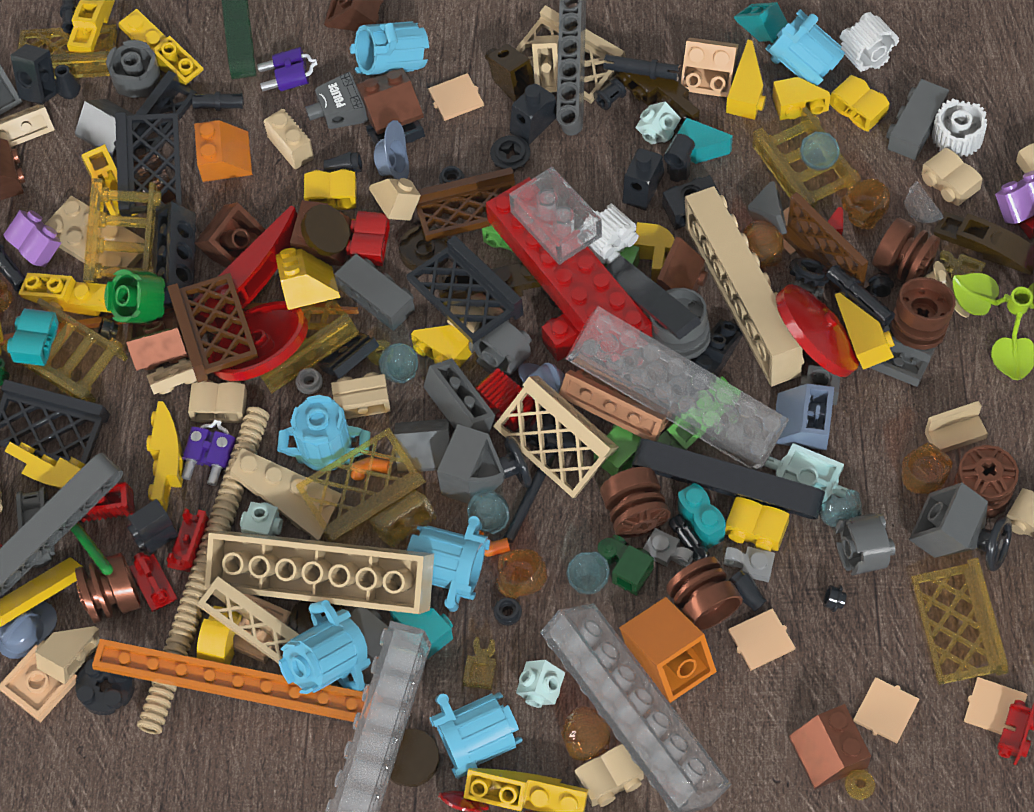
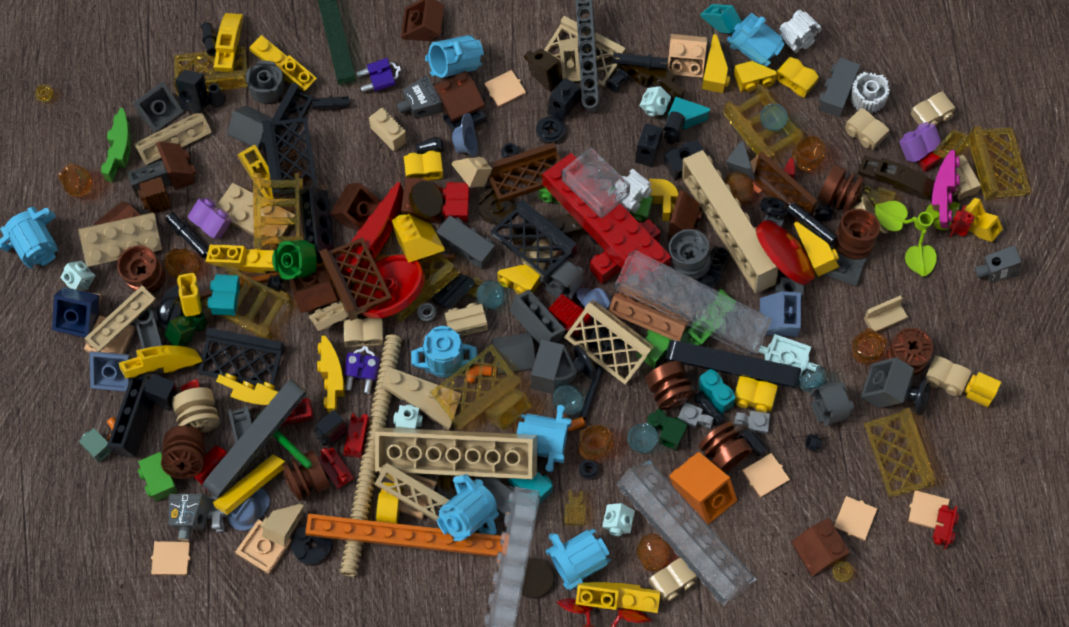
camera: 10 degrees left, 5 degrees up
(222, 151) = (340, 141): orange slope -> none
(653, 299) = (670, 239): black tile -> none
(920, 205) = (846, 152): clear tile -> none

